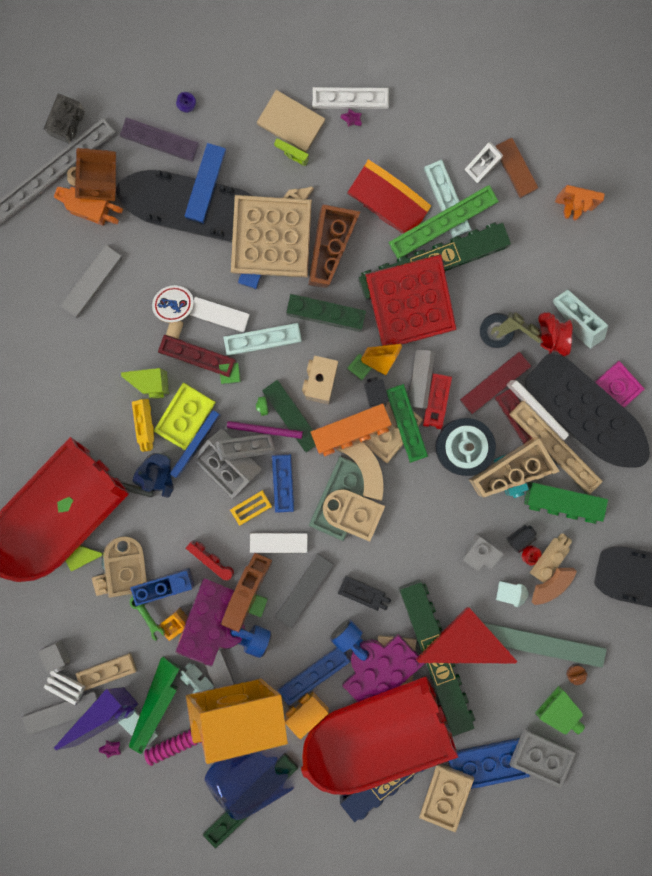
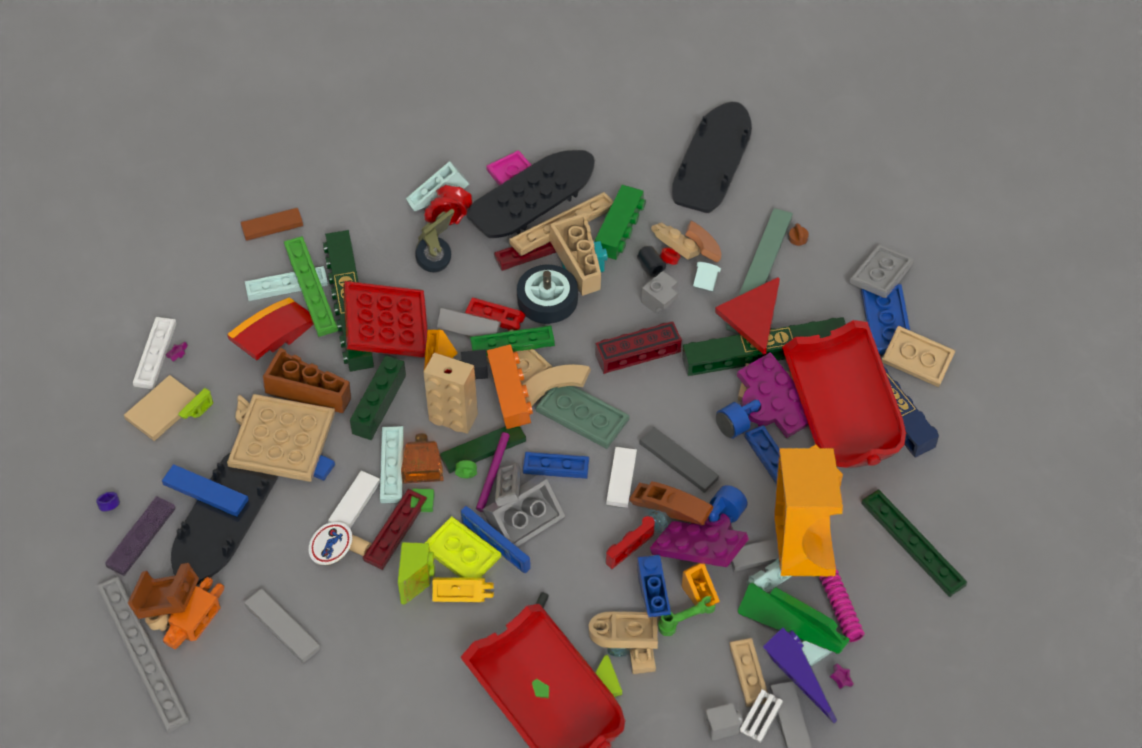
camera: 80 degrees left, 35 degrees down
(64, 118) = (87, 621): clear smoke brick -> none
(155, 474) = (521, 584): dark blue piece -> none
(232, 583) = (660, 521): none -> clear light blue tile
(246, 783) = (880, 534): clear blue piece -> none
(265, 499) = (584, 513): yellow tile -> none
(266, 365) = (421, 461): none -> clear orange torso
(355, 513) = (600, 397): tan tile -> none
(363, 593) = (689, 404): black hinge -> none
(418, 540) = (638, 347): none -> dark red brick
(484, 162) = (258, 244): white slope -> none
(495, 383) = (486, 266): dark red tile -> none
(525, 396) = (502, 239): white tile -> none
(561, 712) = (834, 250): bright green torso -> none
(578, 200) = (320, 162): orange piece -> none

